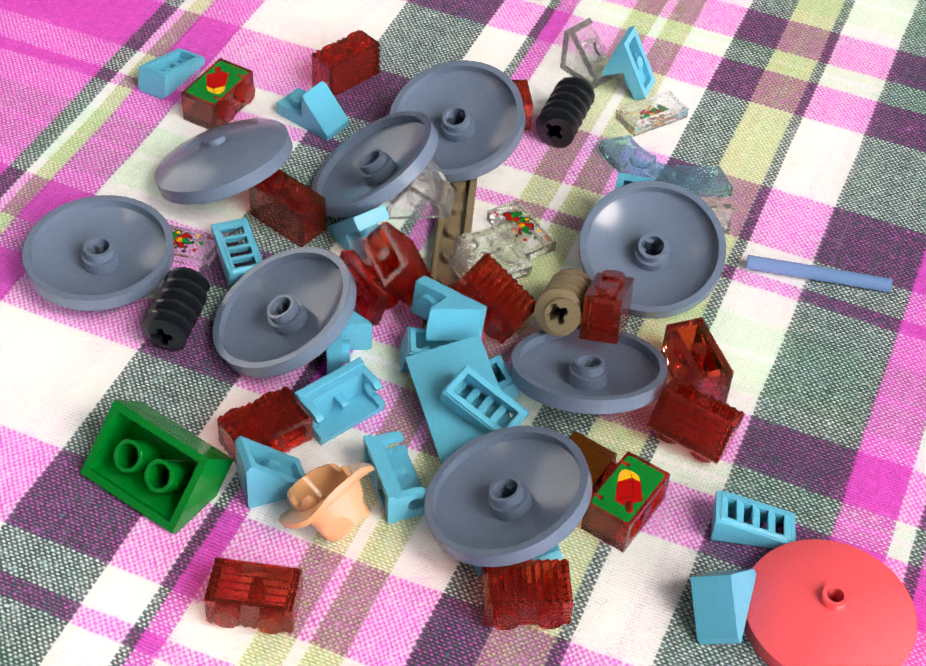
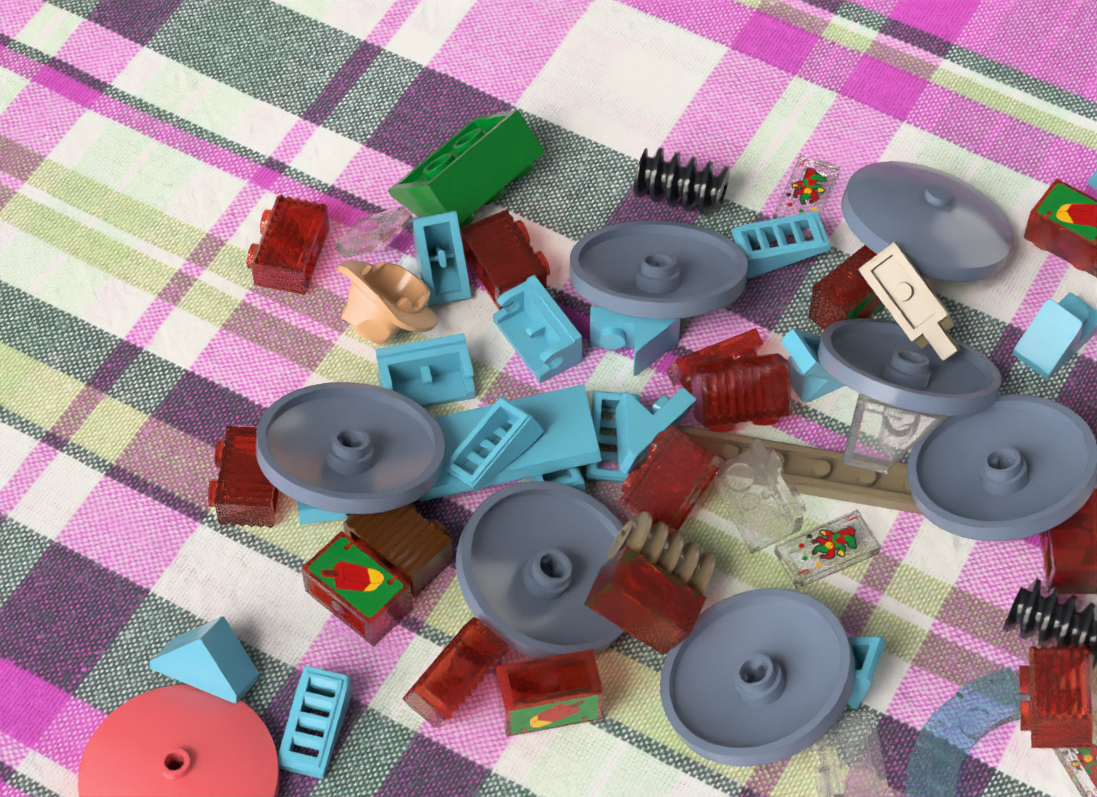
camera: 100 degrees right, 10 degrees up
(98, 253) = (772, 110): sand blue dish -> none
(247, 516) = (373, 232): none -> clear tile
(315, 157) = (910, 300): none -> hinge
(628, 108) = (1059, 697): none -> clear red brick

